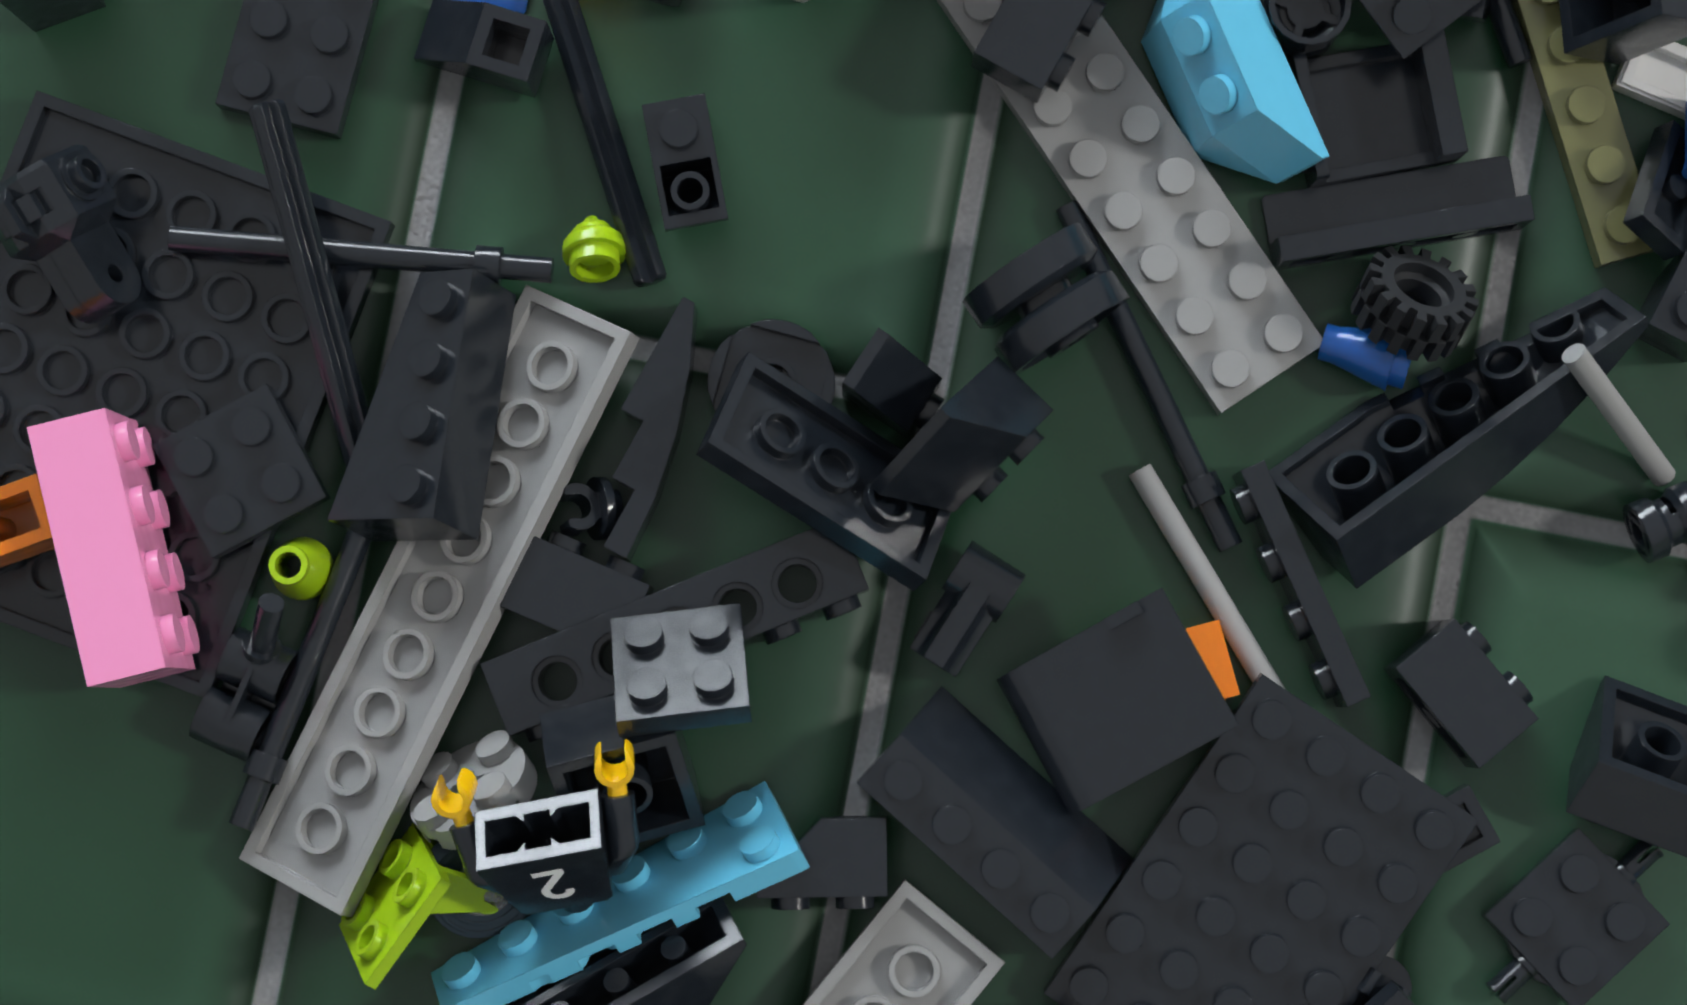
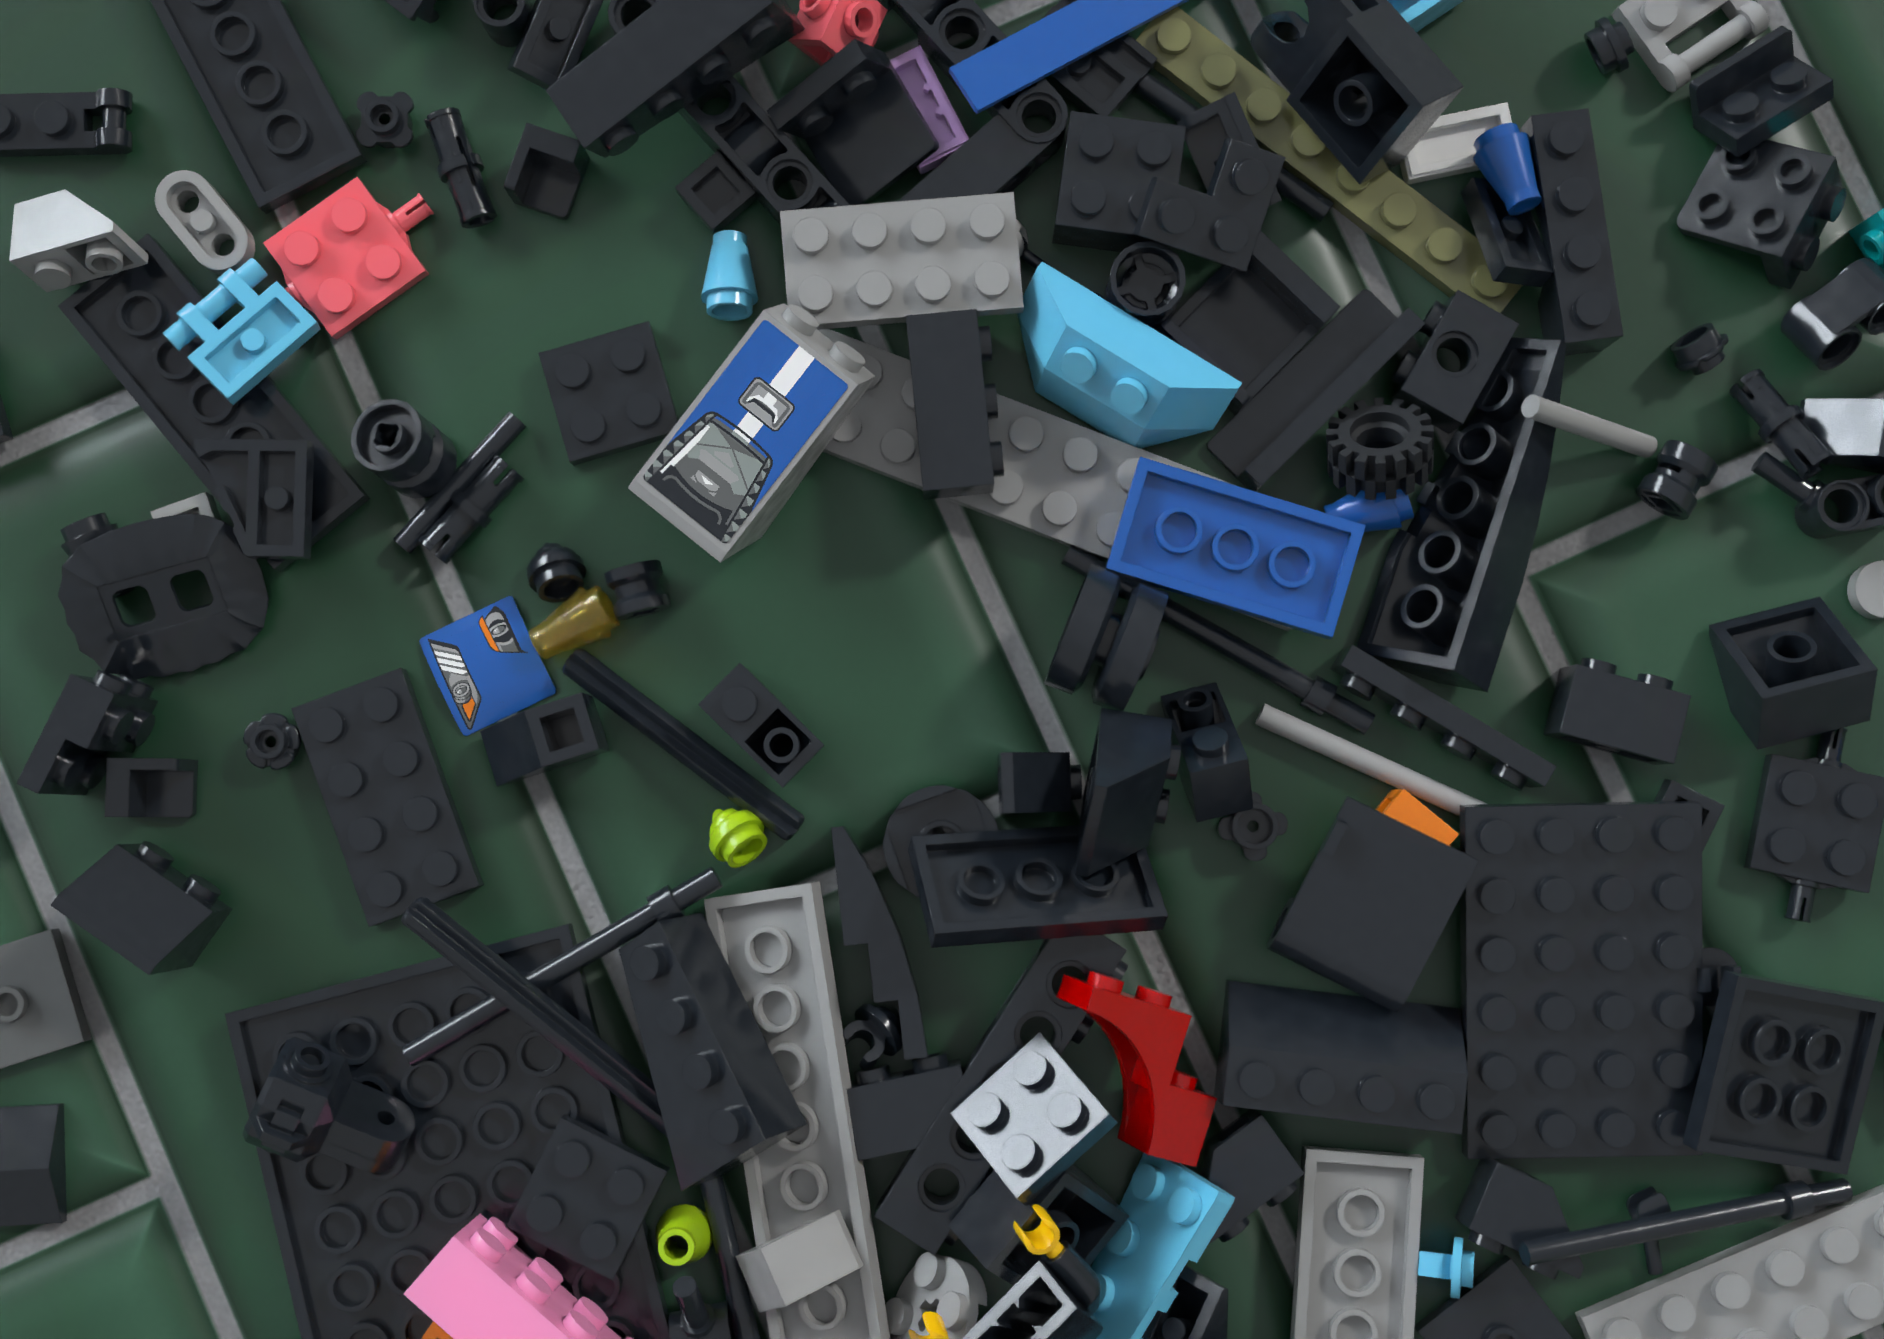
camera: 35 degrees left, 0 degrees up
(386, 656) = (799, 1262): none -> light grey slope
(803, 748) = (1160, 1104): none -> red arch
(972, 599) = (1206, 895): black piece -> none
(1066, 468) = (1212, 755): none -> black slope
(1072, 549) = (1253, 843): none -> black plate
(1219, 300) = (1235, 548): none -> blue plate
(1574, 263) = (1476, 337): none -> black brick

